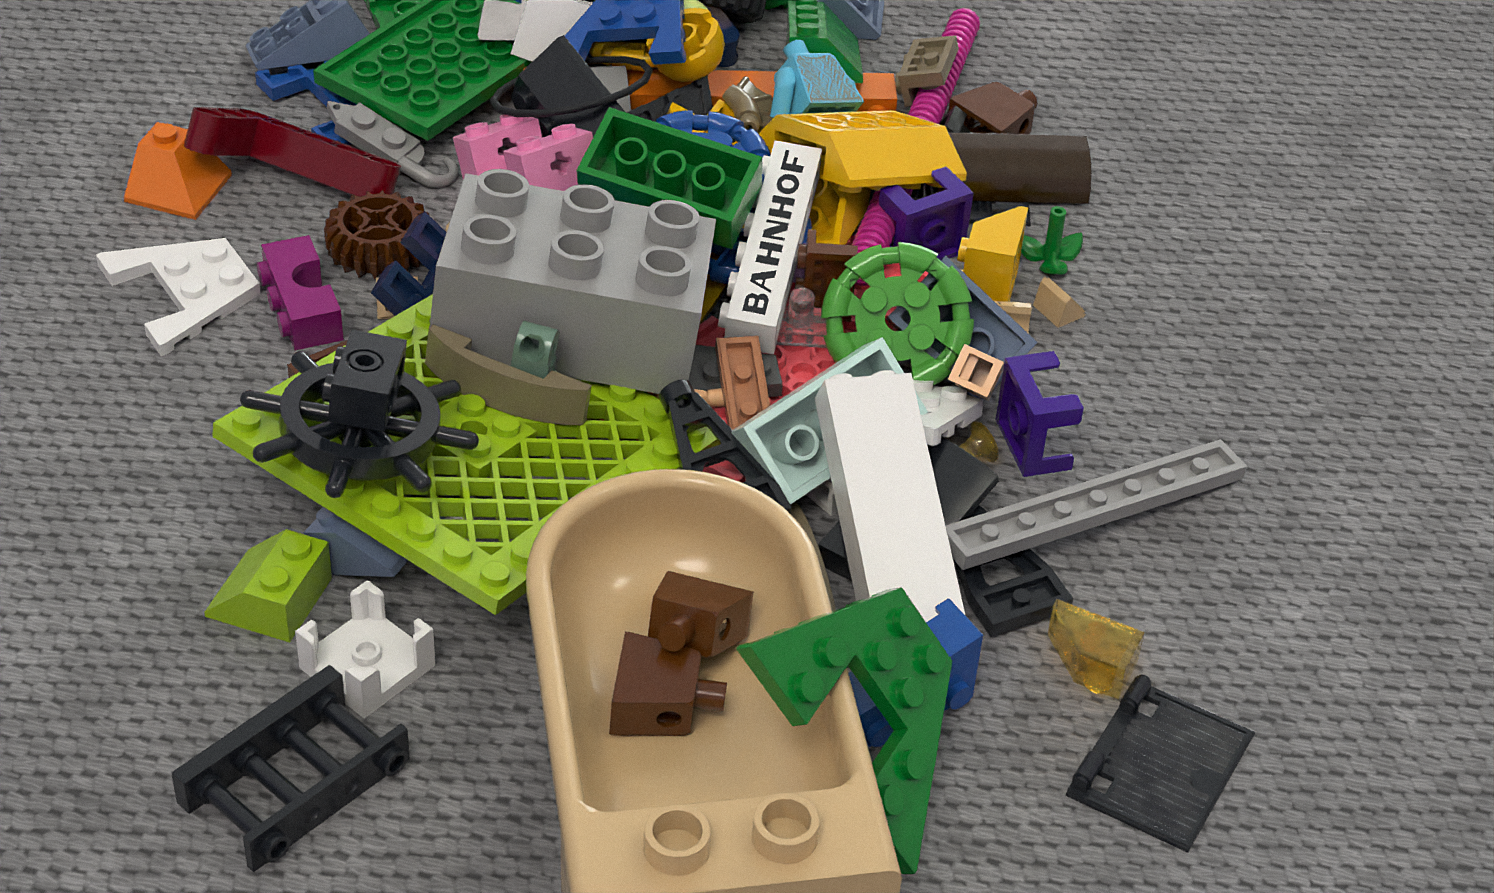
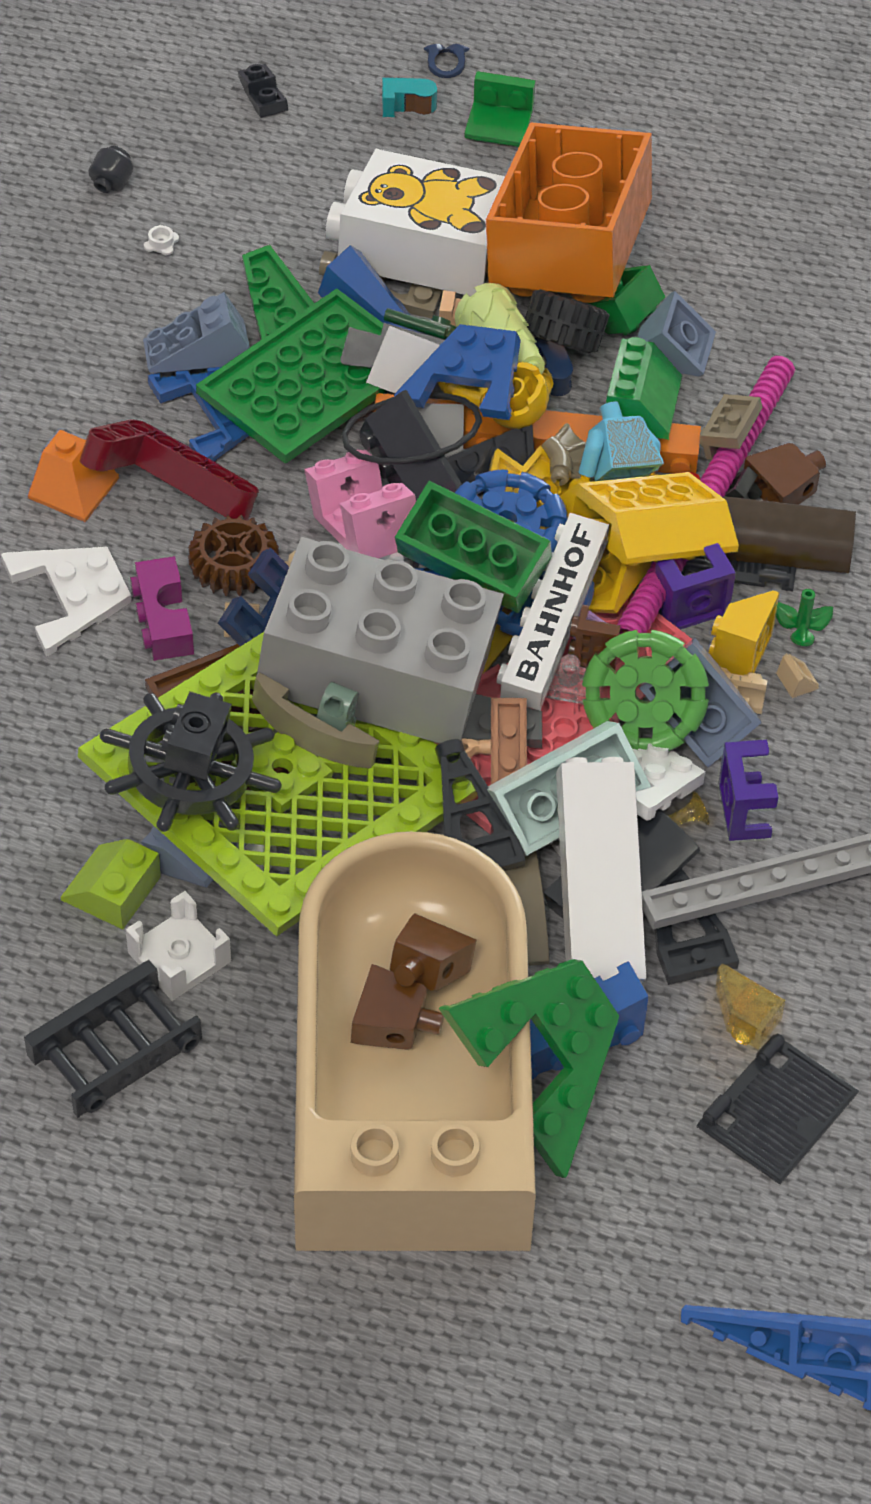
camera: 10 degrees right, 10 degrees up
(384, 139) = (251, 461): light grey plate -> none
(976, 372) = (701, 750): light nougat leg -> none

